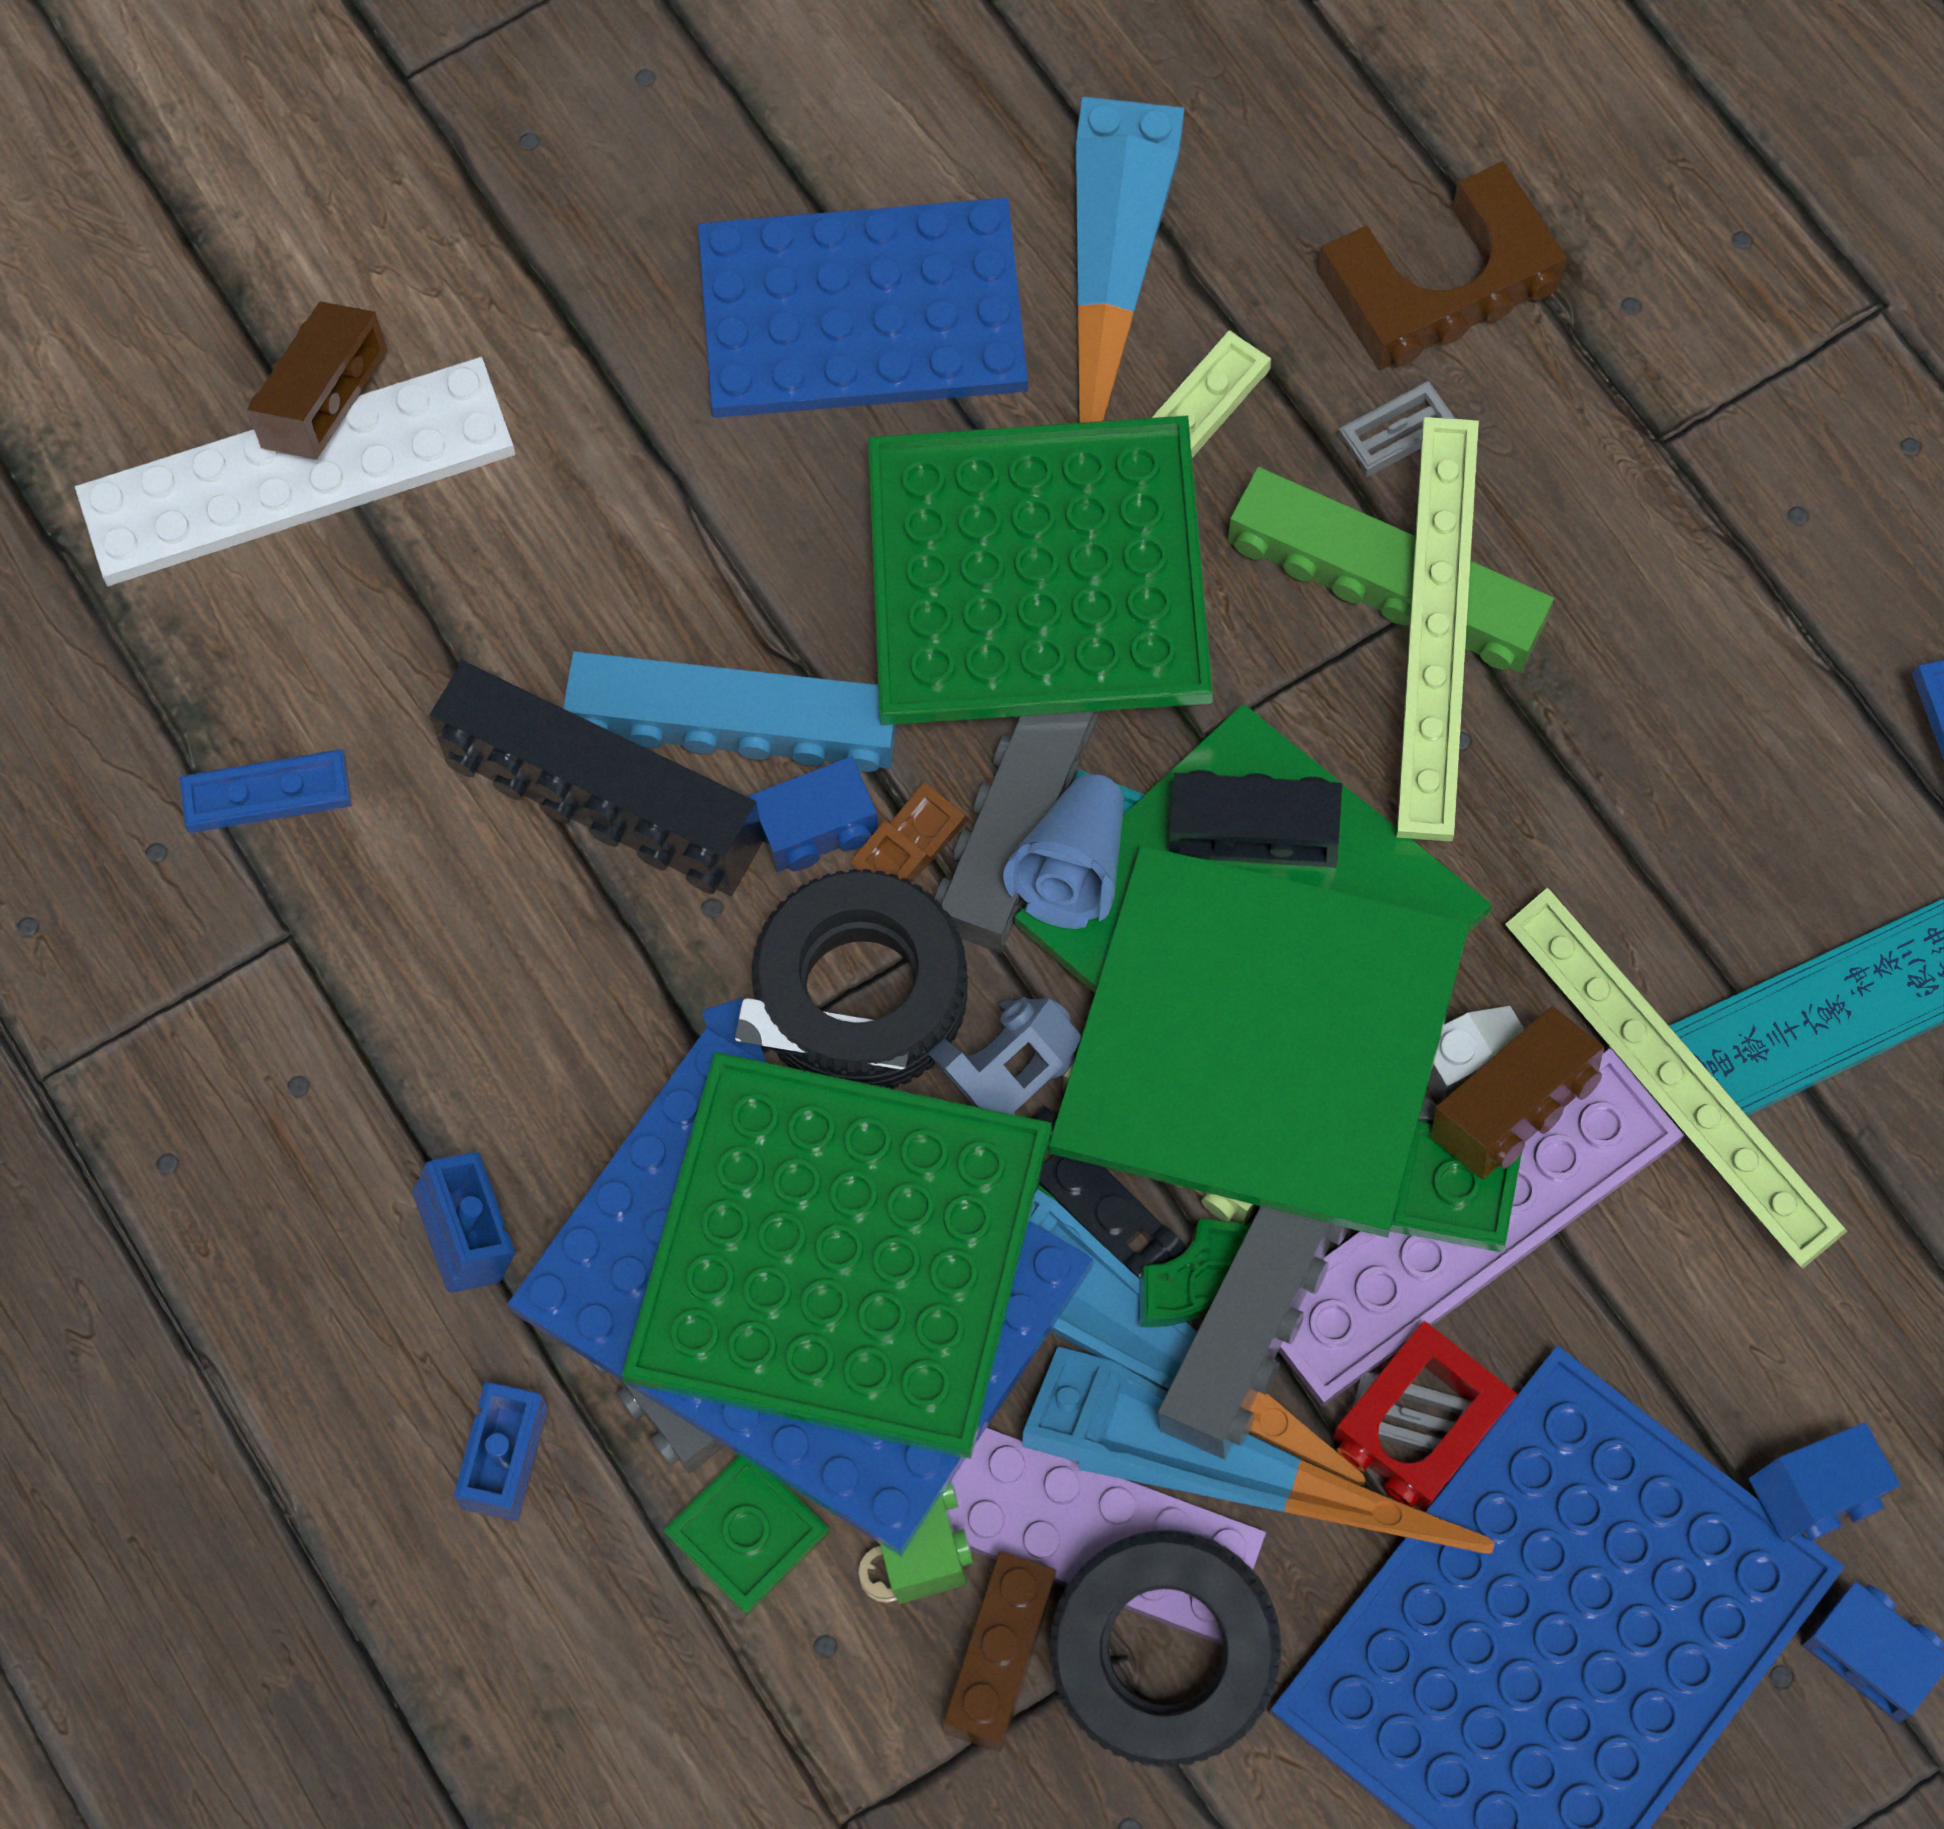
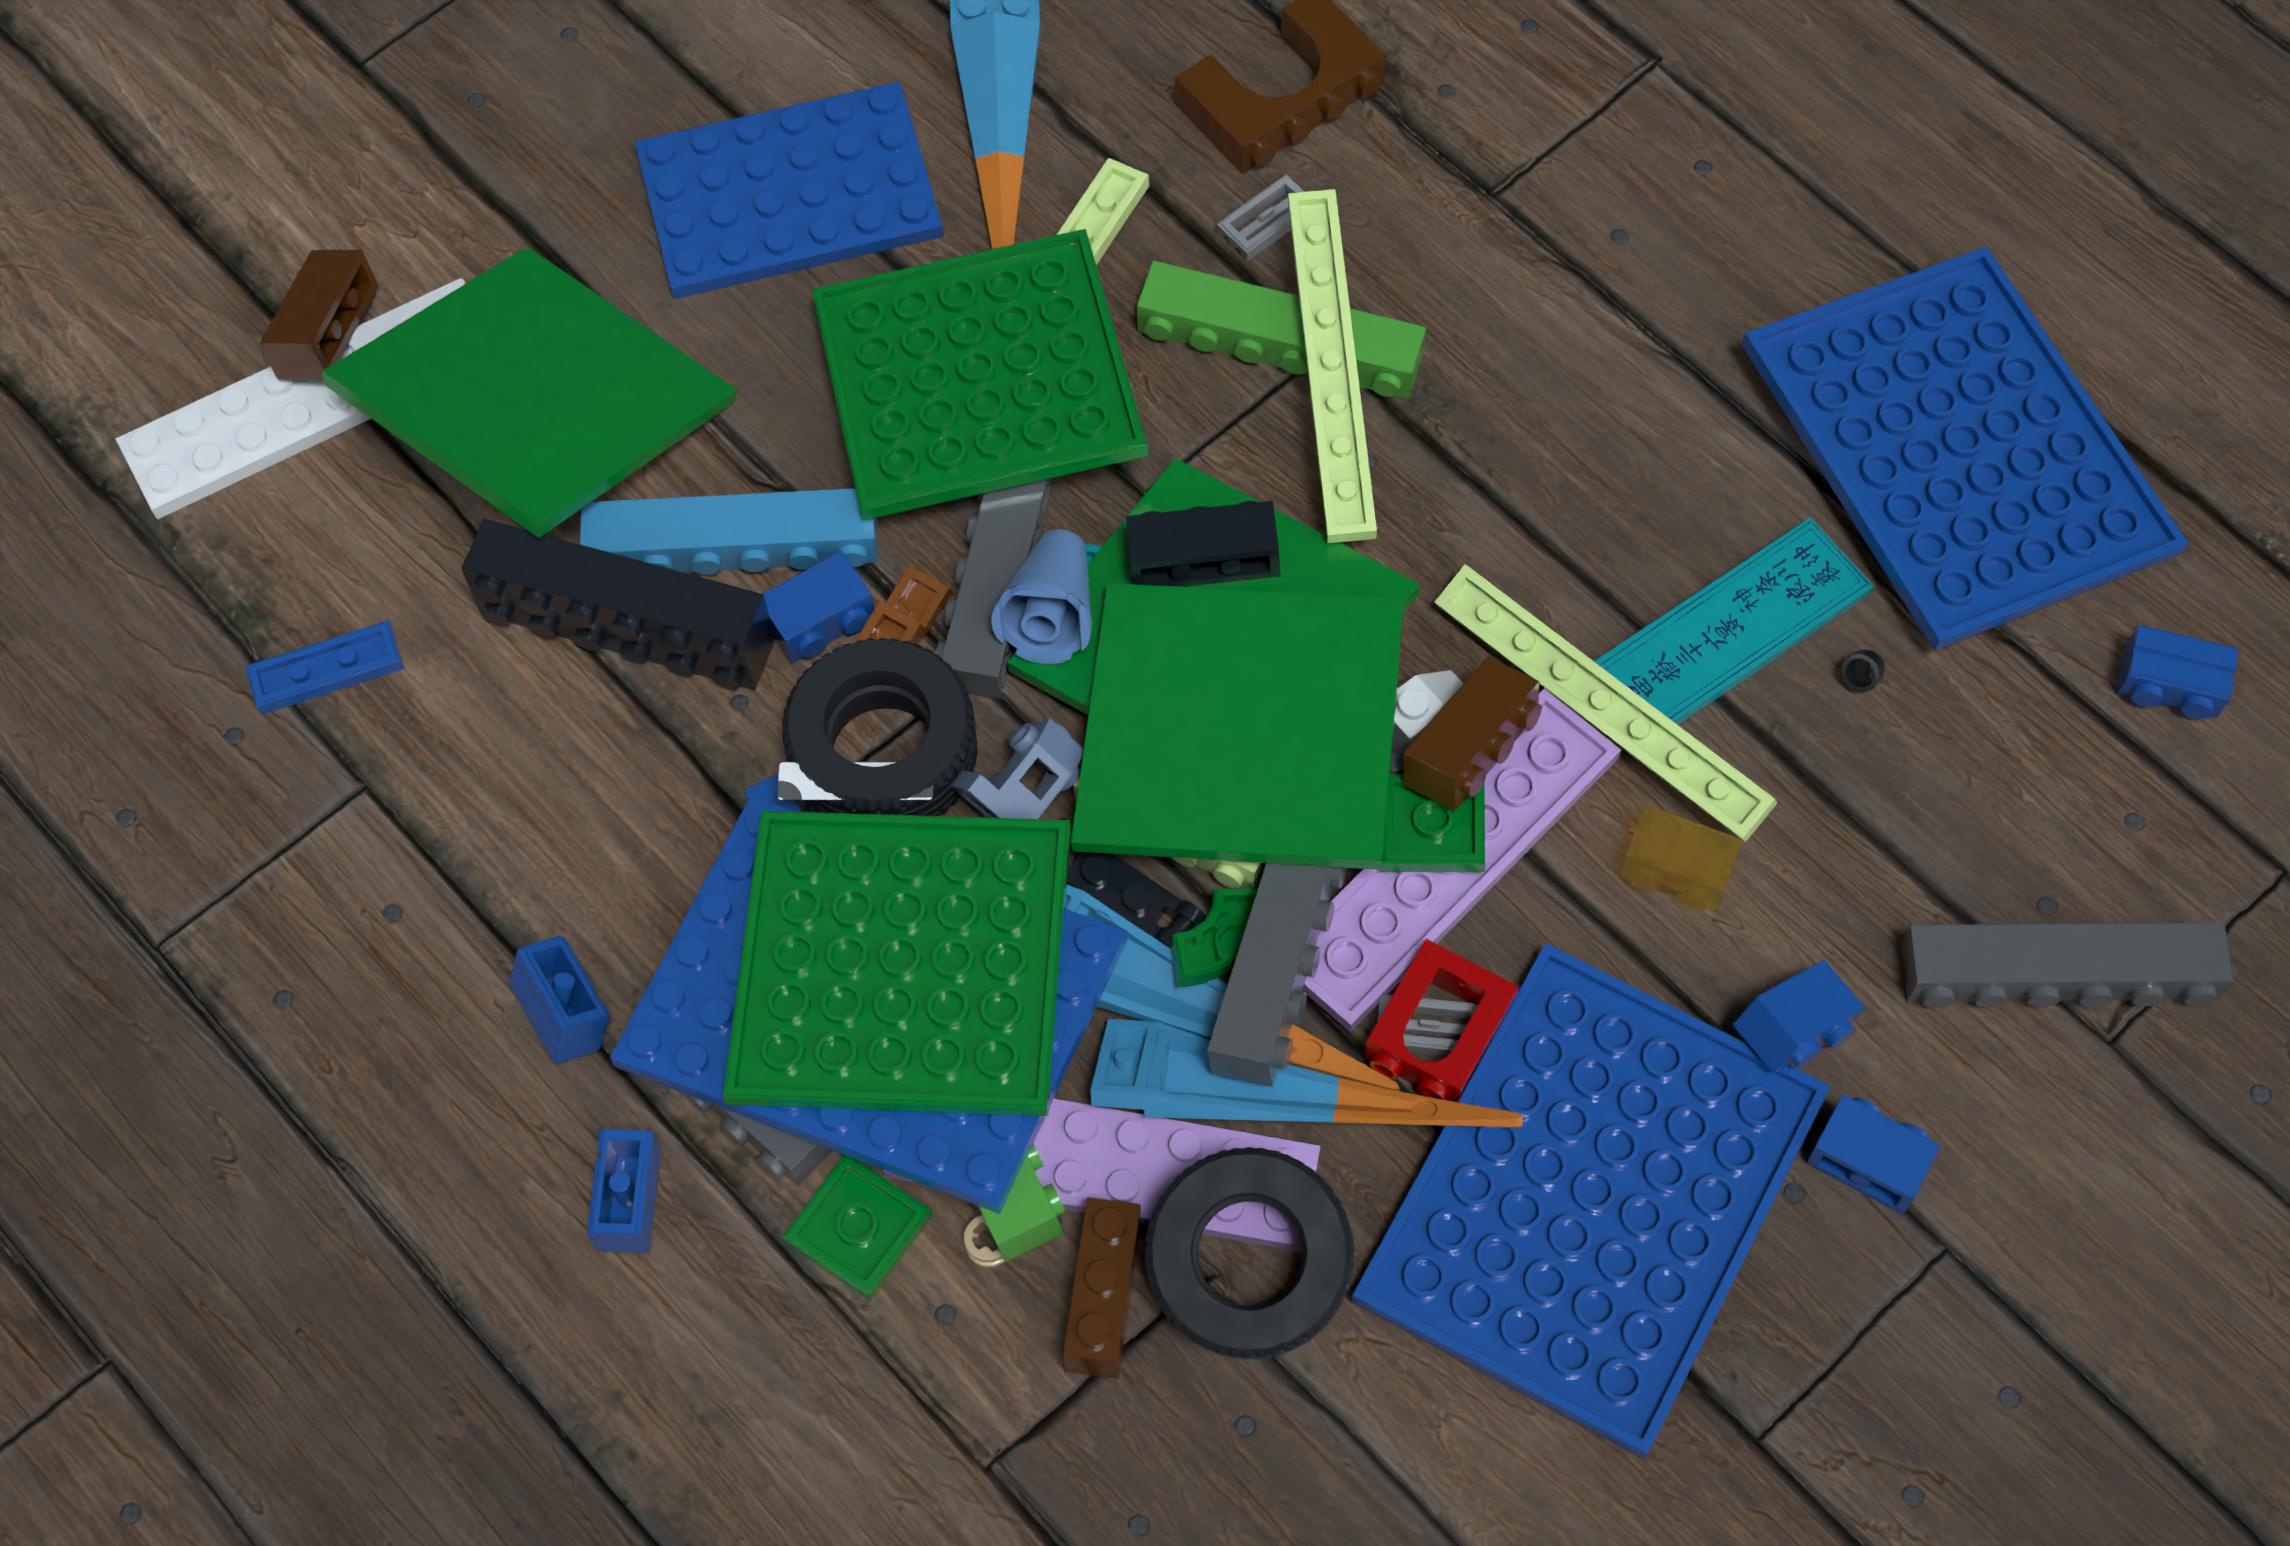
camera: 10 degrees left, 5 degrees down
(537, 510) = (530, 390): none -> green tile
(1727, 1274) = (1680, 859): none -> clear yellow brick

